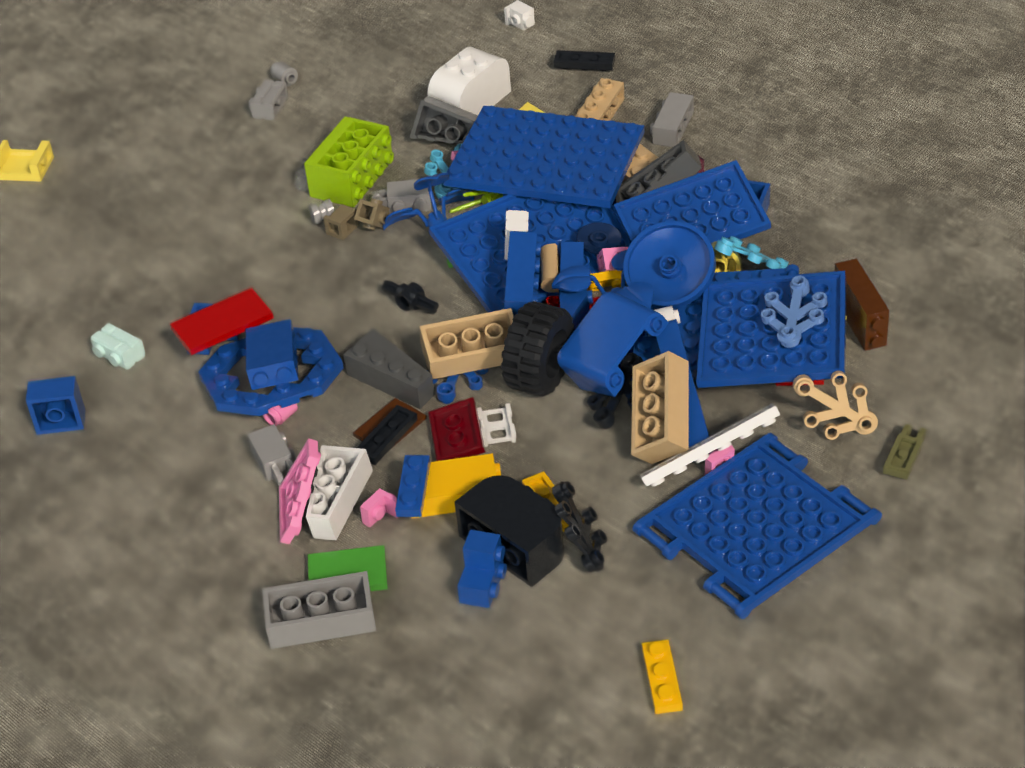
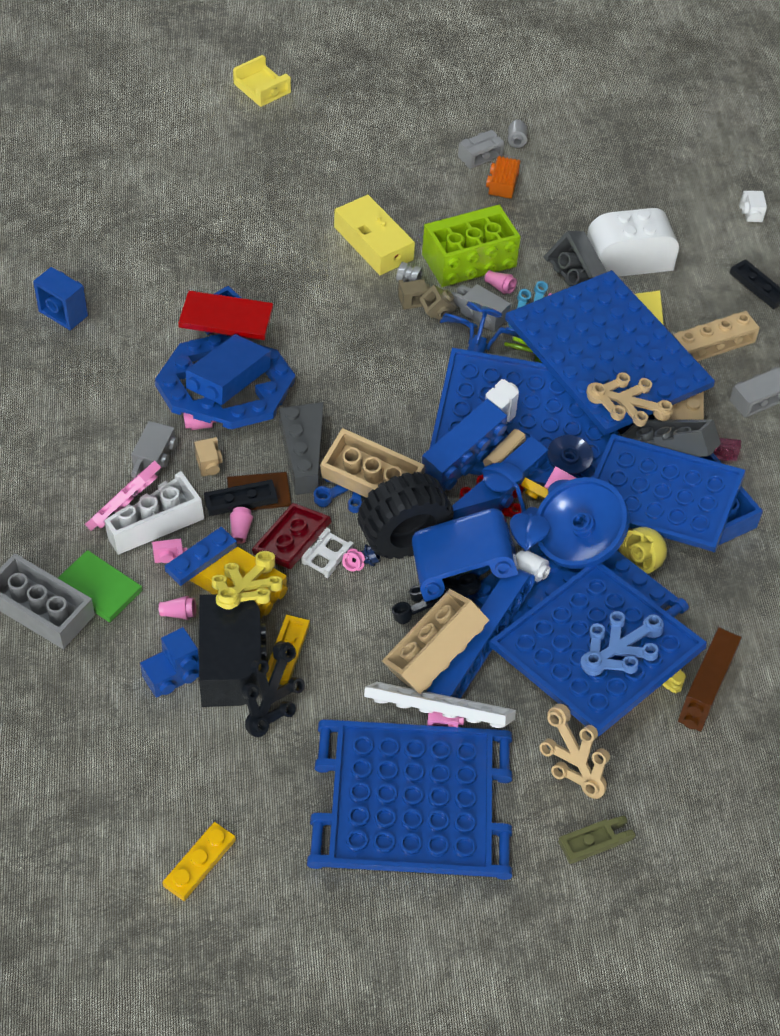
camera: 35 degrees right, 10 degrees up
(117, 346) = (155, 281): light aqua brick -> none
(259, 203) = (374, 234): none -> light yellow brick
(311, 107) = (504, 177): none -> orange brick
(323, 428) = (208, 456): none -> tan brick
(398, 172) = (503, 282): none -> bright pink cone
(403, 446) = (240, 523): none -> bright pink cone
(410, 296) = (388, 395): black axle -> none
(434, 536) = (178, 608): none -> bright pink cone
(482, 481) = (232, 596): none -> light yellow plant
(530, 413) = (348, 561): none -> bright pink plate
(531, 402) = (370, 556): none -> dark blue plate
(580, 179) = (599, 393): none -> tan plant
(727, 246) = (670, 565): medium azure plant -> none

